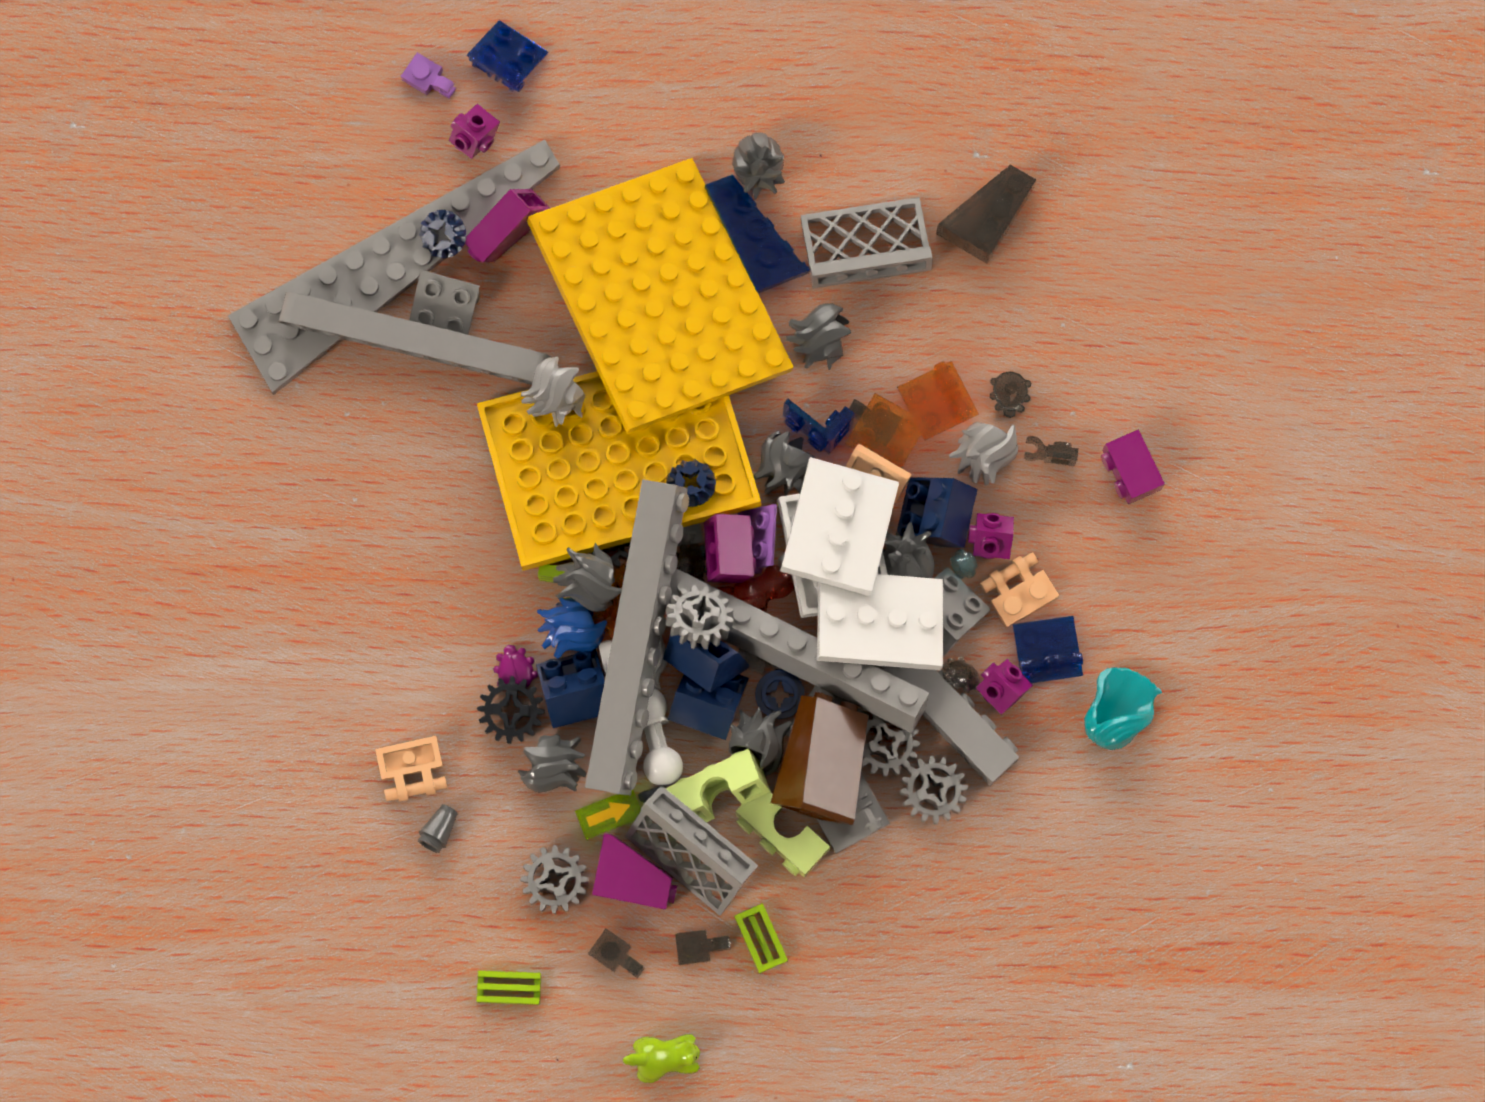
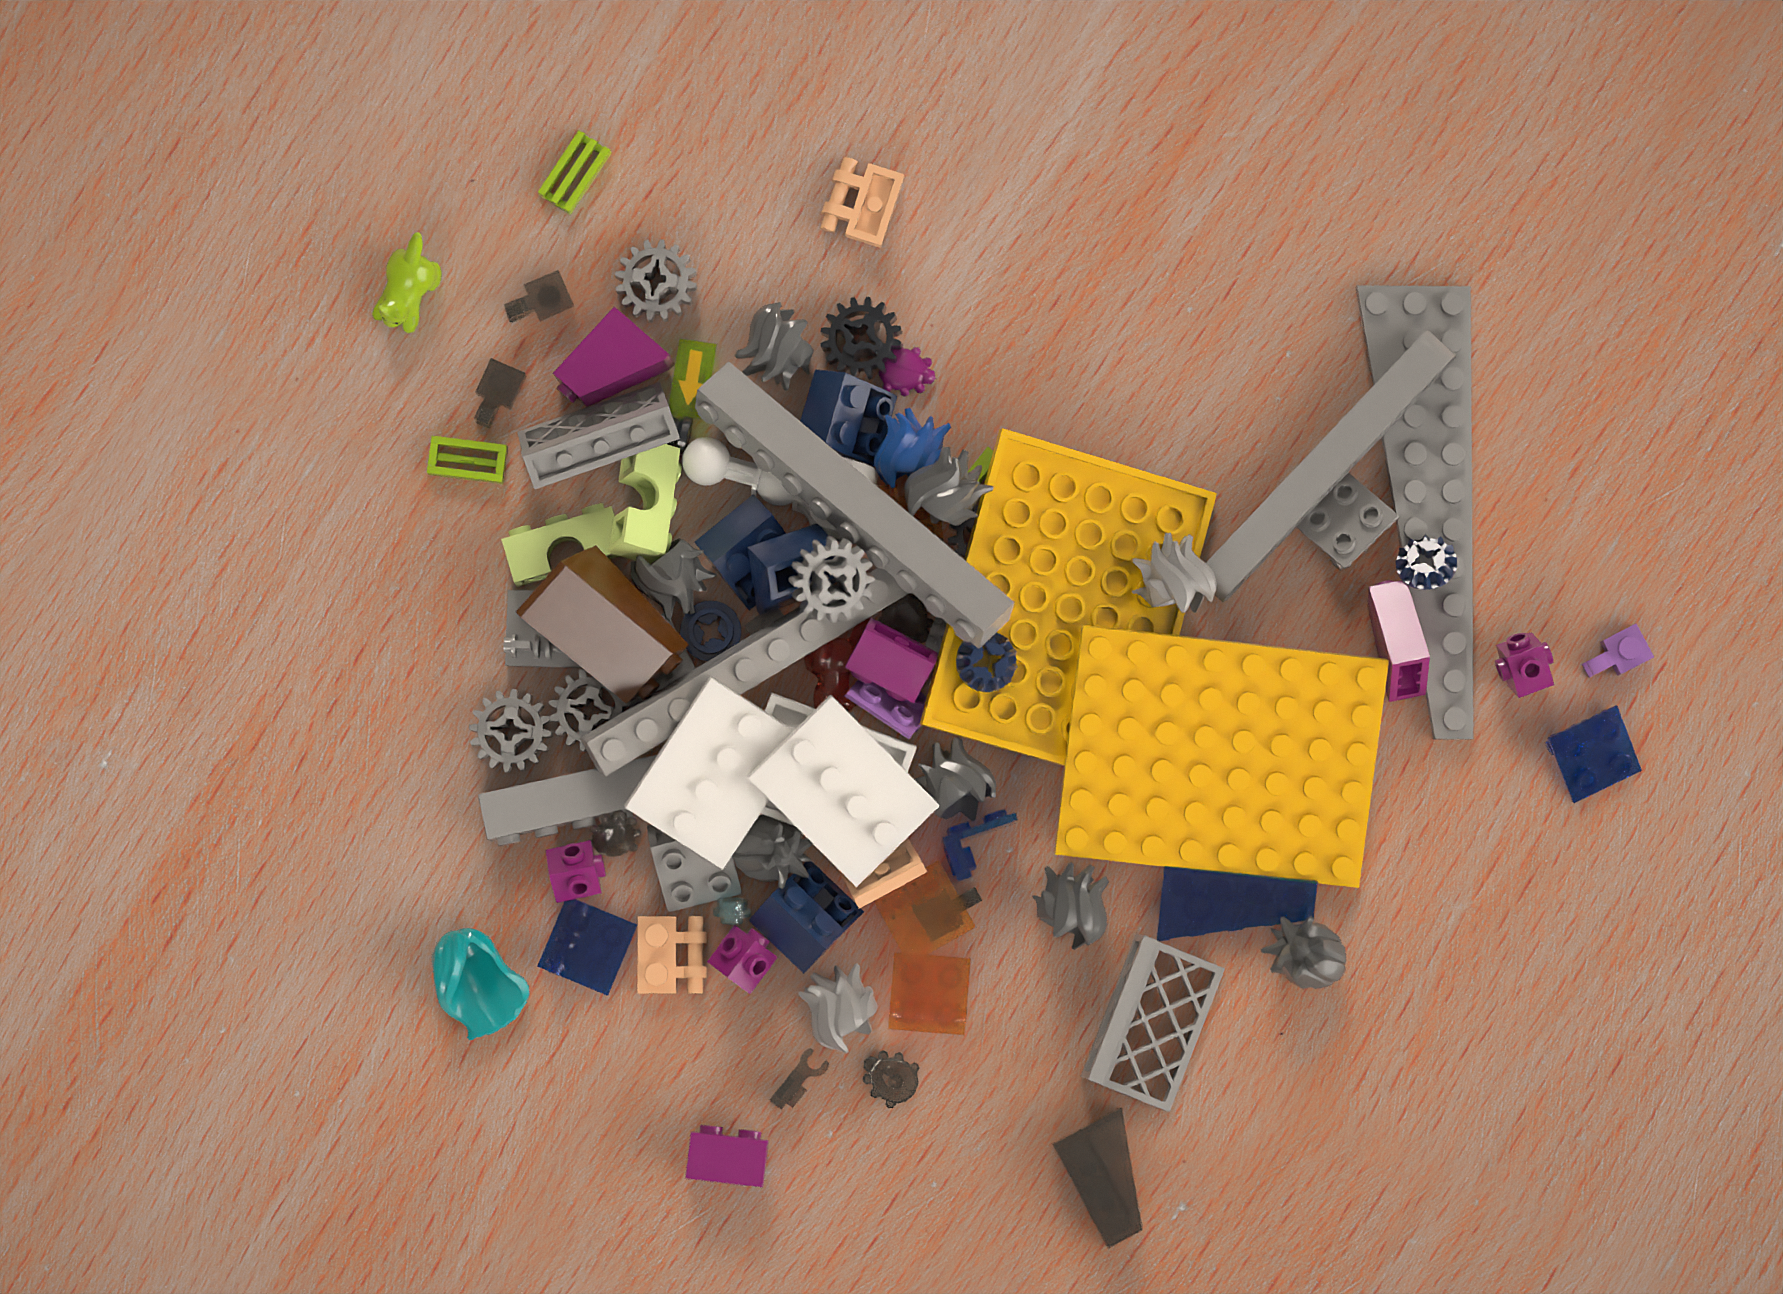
camera: 125 degrees right, 5 degrees up
(438, 829) = (781, 193): dark grey cone -> none

